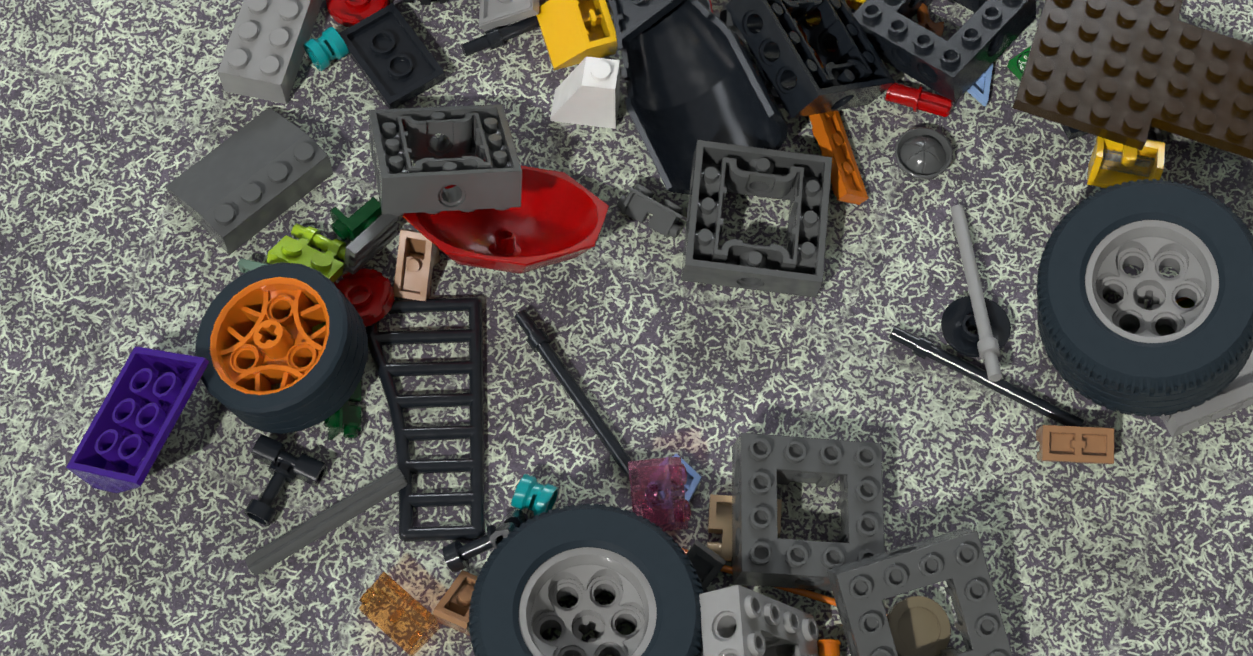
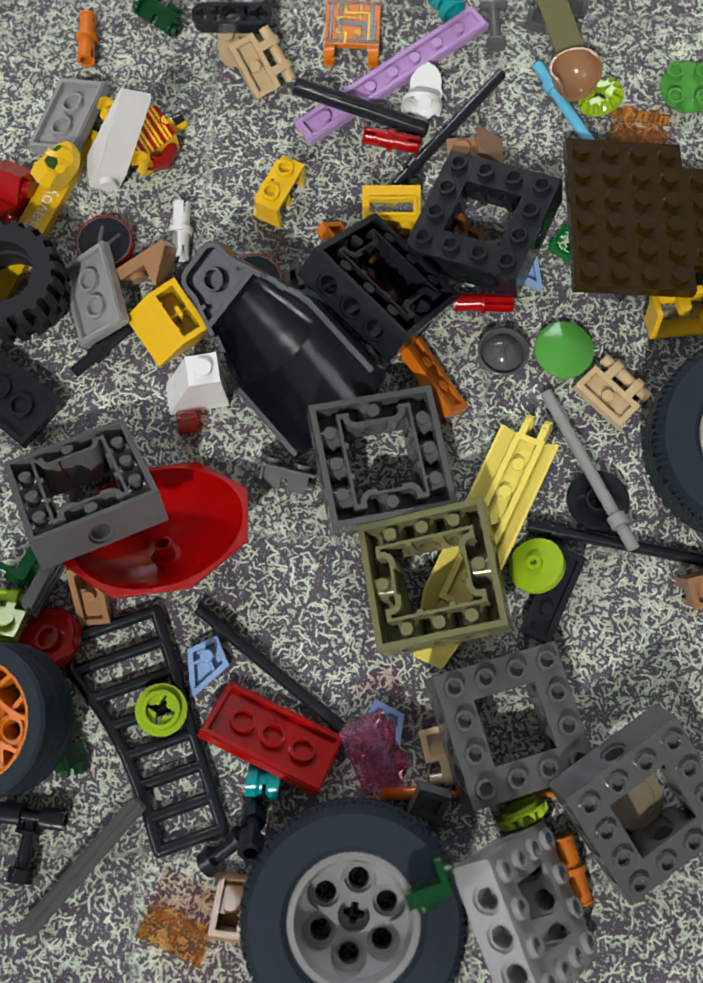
camera: 15 degrees left, 10 degrees up
(450, 381) = (148, 718): none -> lime gear
(510, 370) = (205, 664): none -> light blue piece
(556, 453) = (271, 737): none -> red tile
(567, 131) = (188, 422): none -> clear red axle
(671, 598) = (426, 895): none -> dark green bracket
(774, 299) = (443, 527): none -> olive brick
(799, 598) = (522, 812): none -> lime gear
(839, 327) = (509, 487): none -> light yellow hinge
(889, 372) = (537, 566): none -> lime piece
(897, 404) = (548, 607): none -> black plate
(990, 170) = (564, 350): none -> bright green dish
(1019, 226) = (609, 398): none -> tan plate

